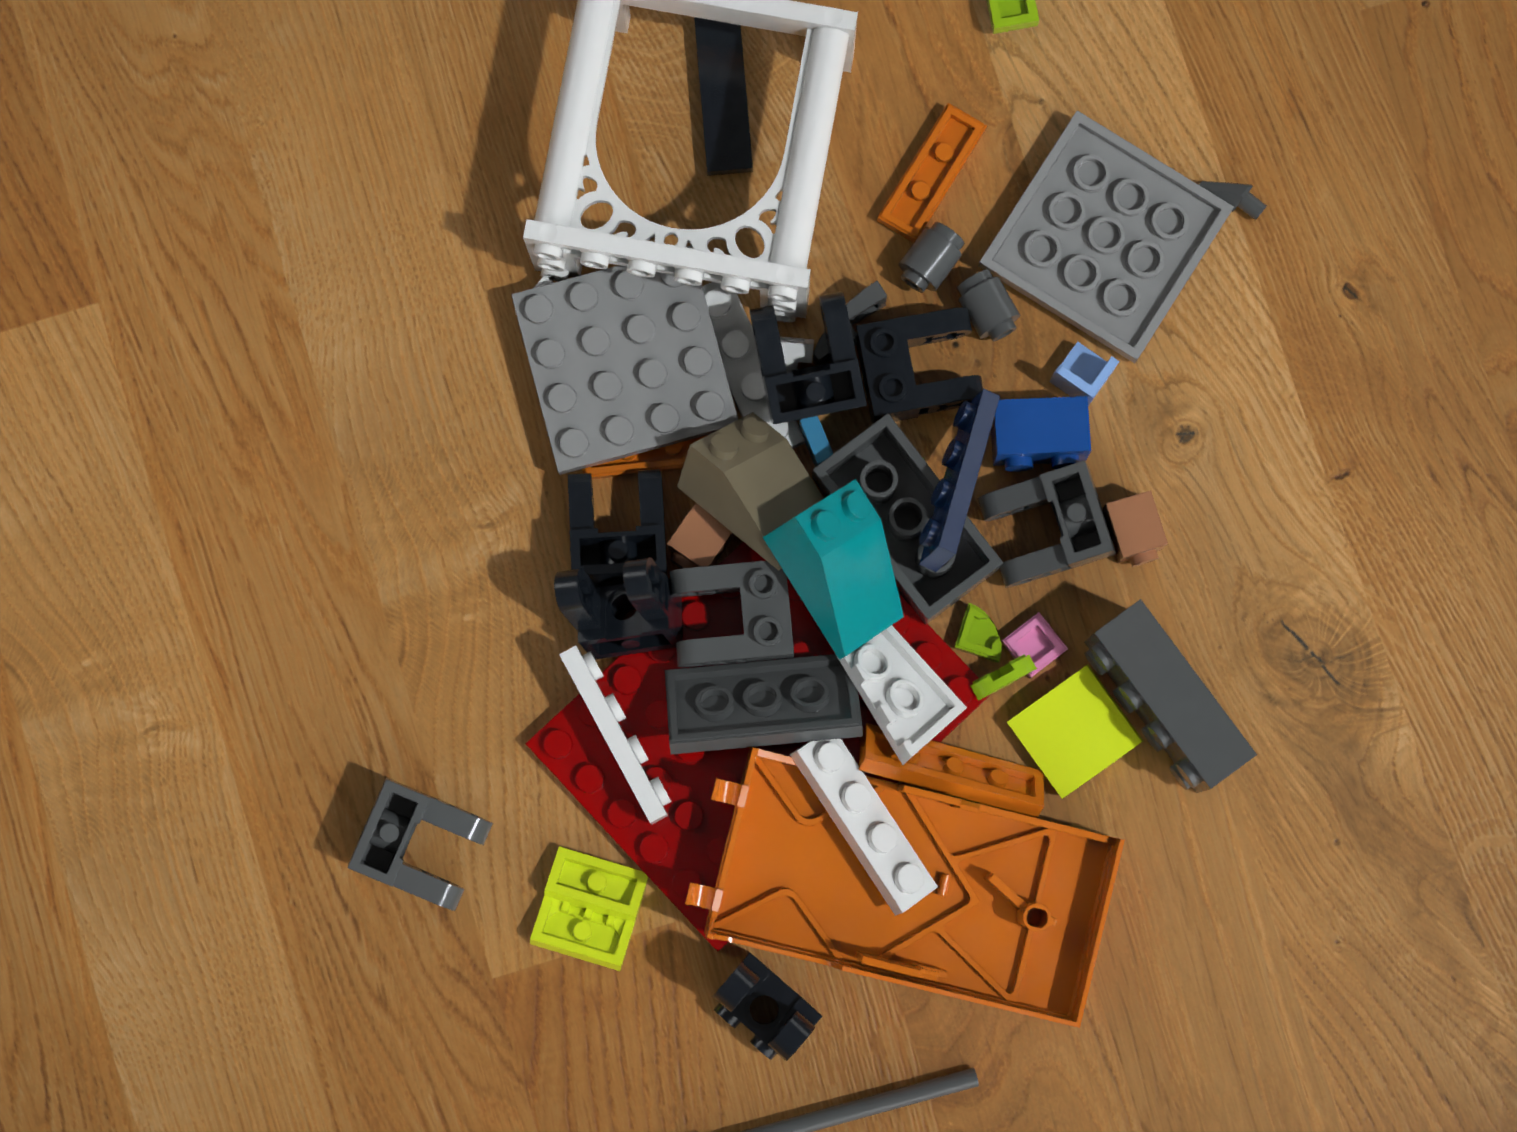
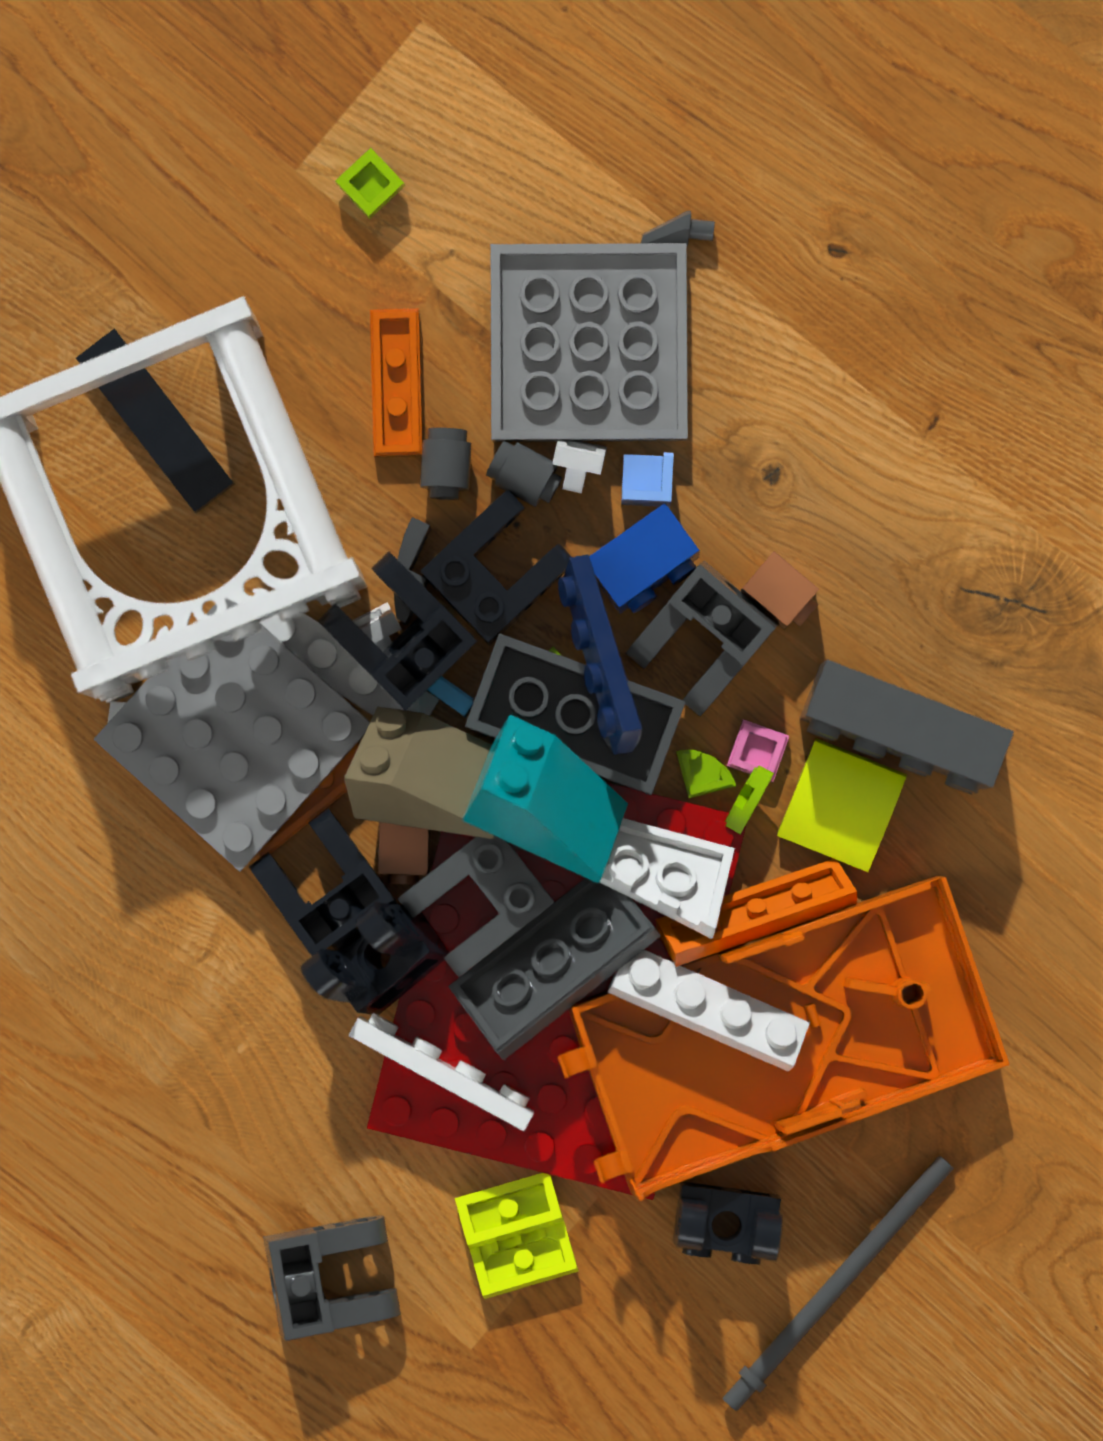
camera: 30 degrees left, 5 degrees up
(1038, 323) = (579, 459): none -> white tile

